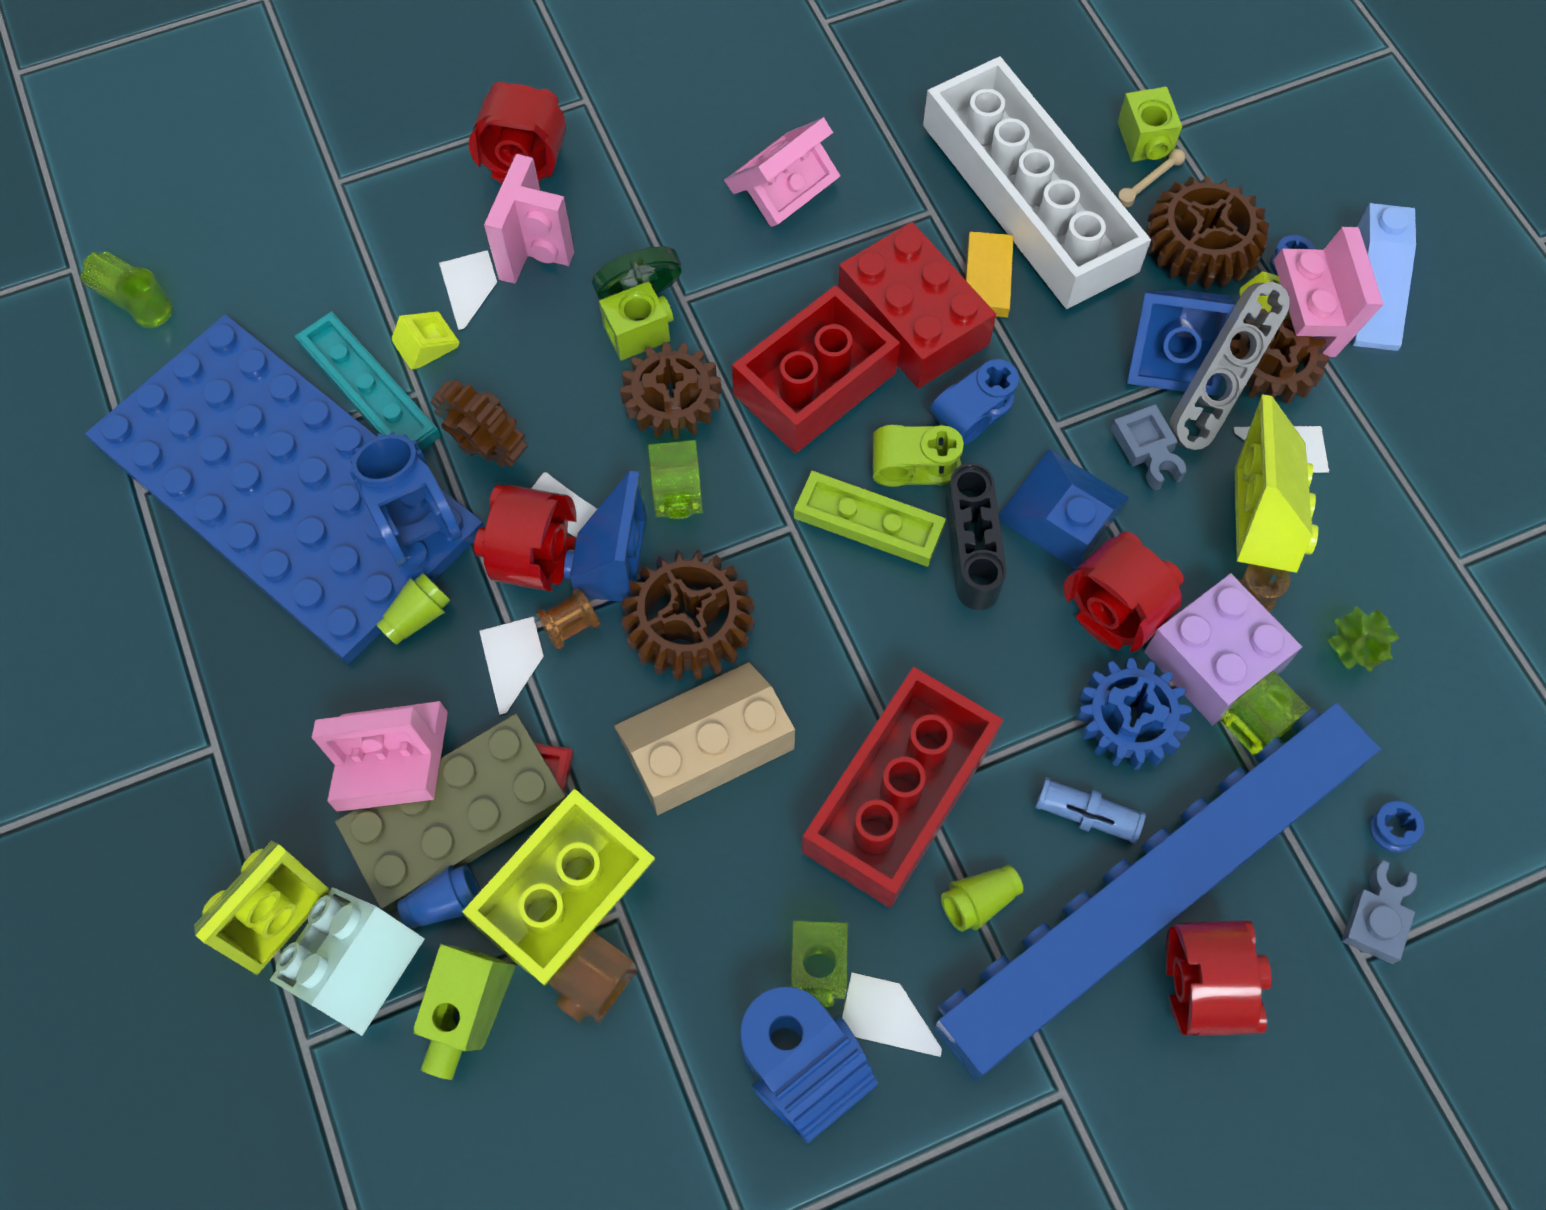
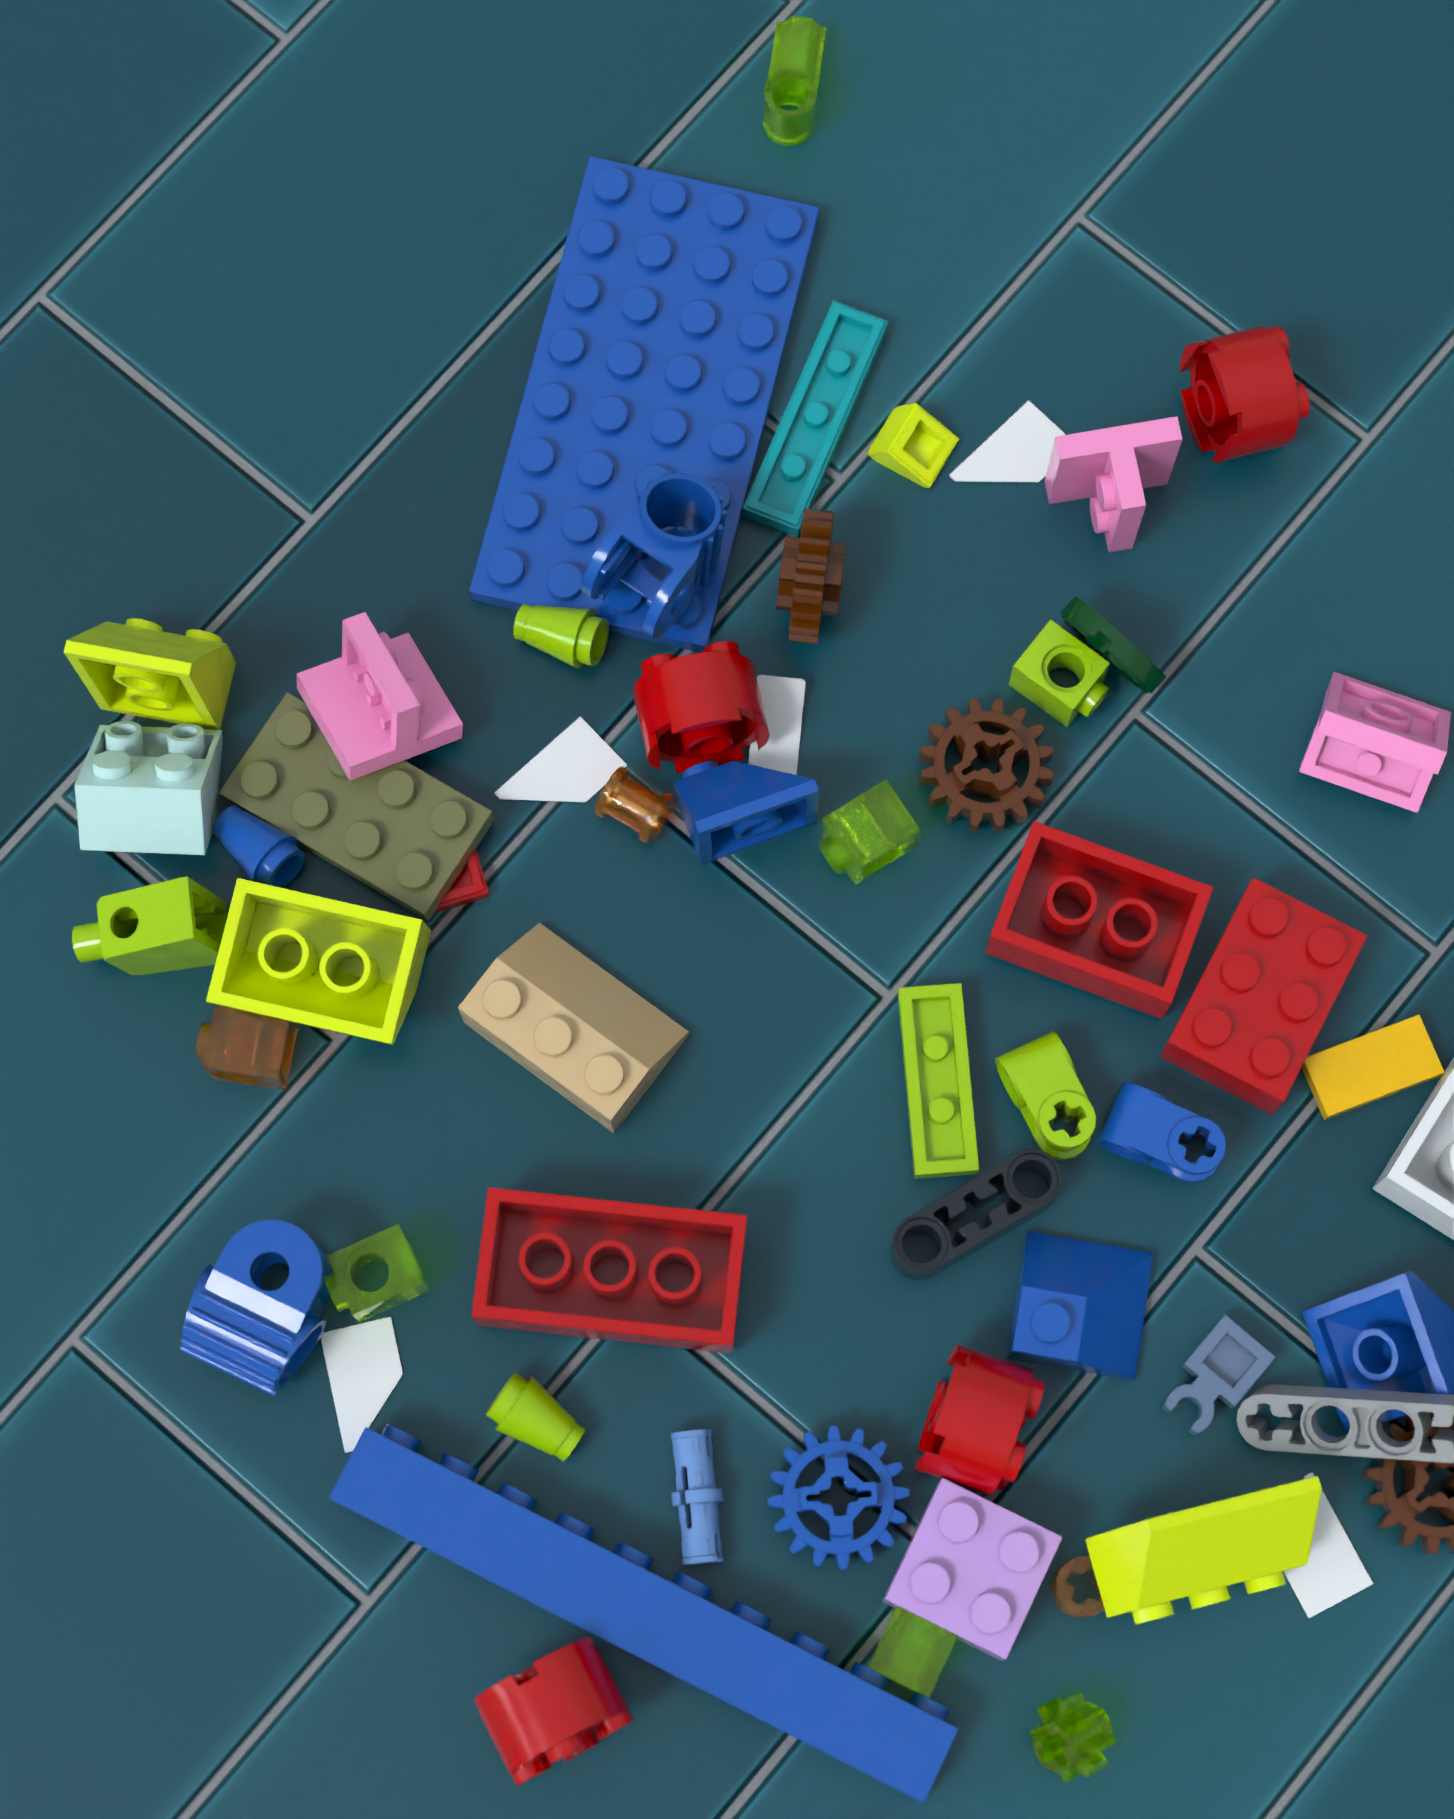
camera: 65 degrees right, 10 degrees up
(718, 594) = (725, 951): reddish brown gear -> none

